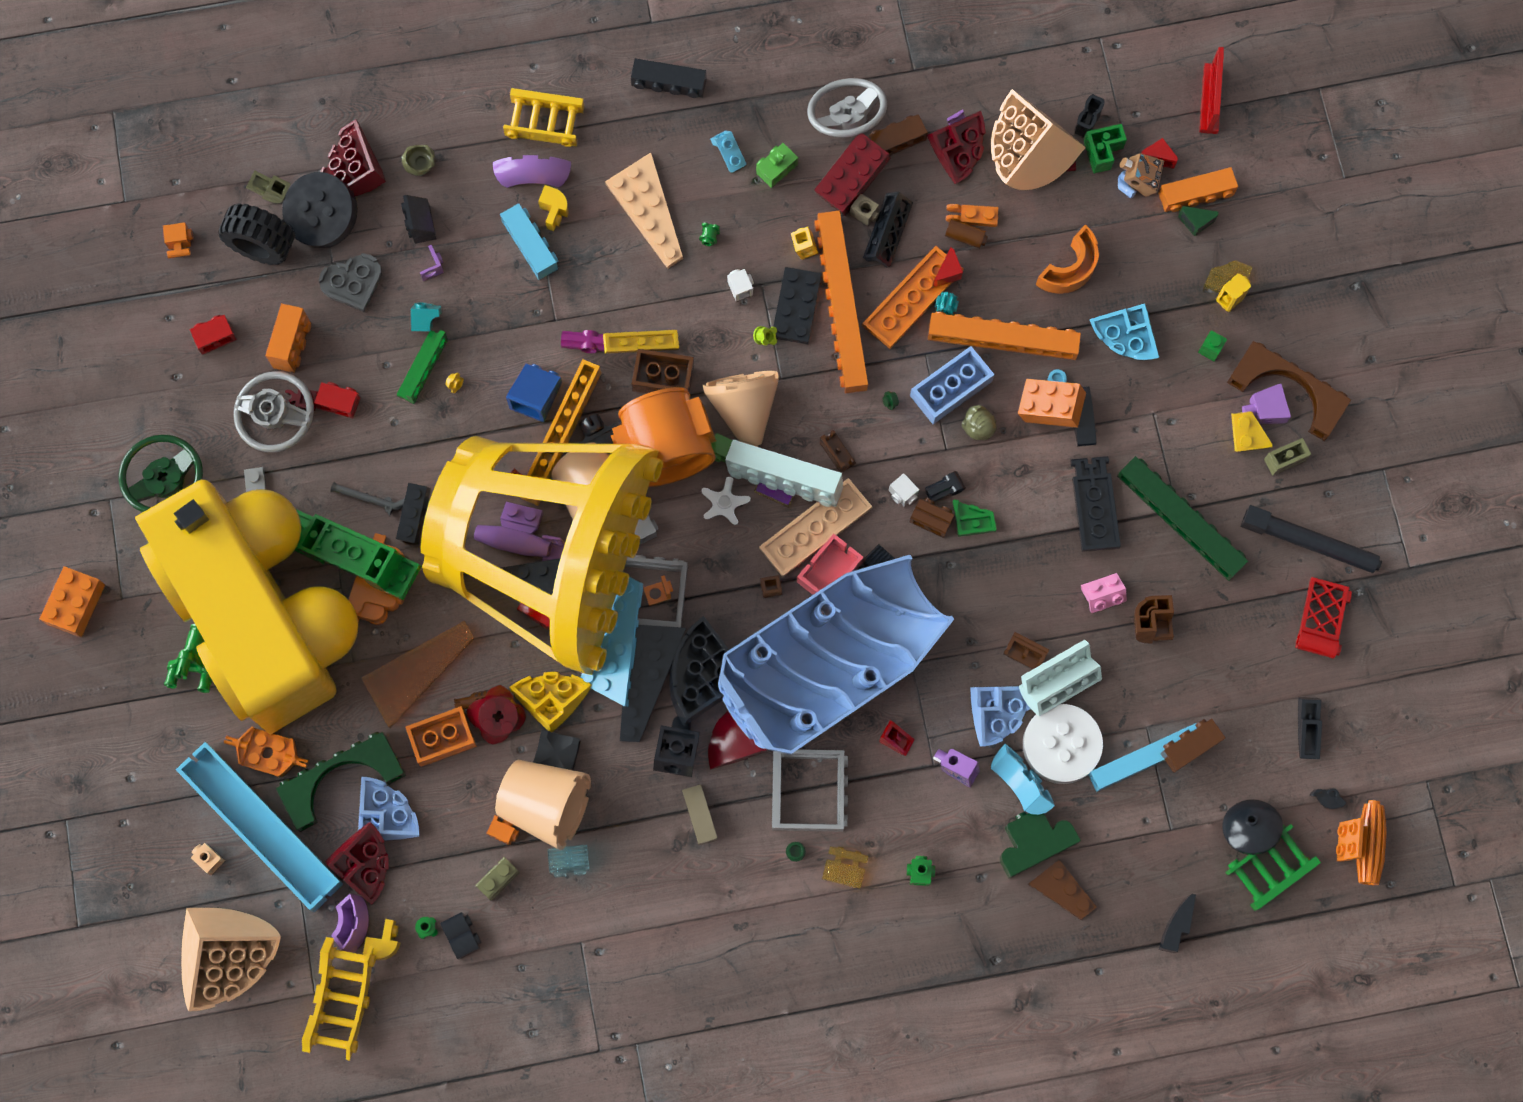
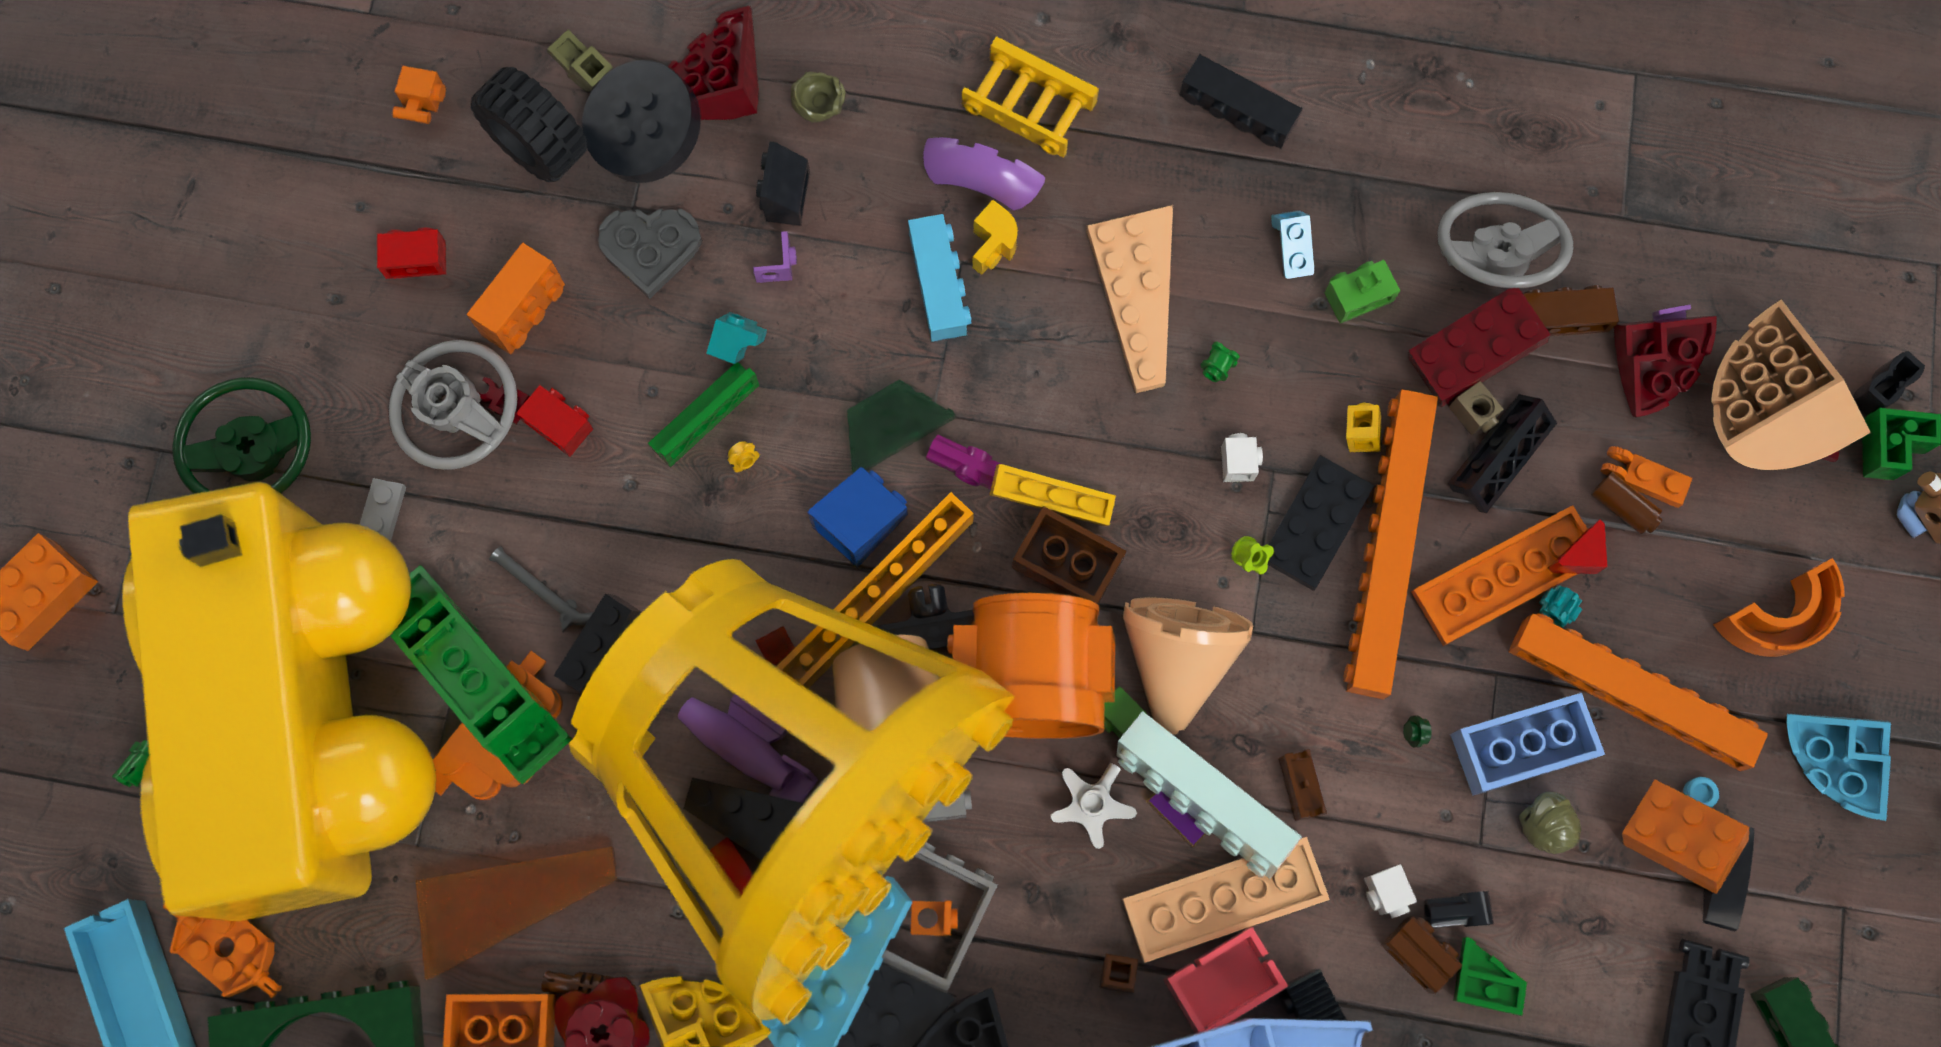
camera: 20 degrees right, 0 degrees up
(533, 333) = (891, 423): none -> clear green wing

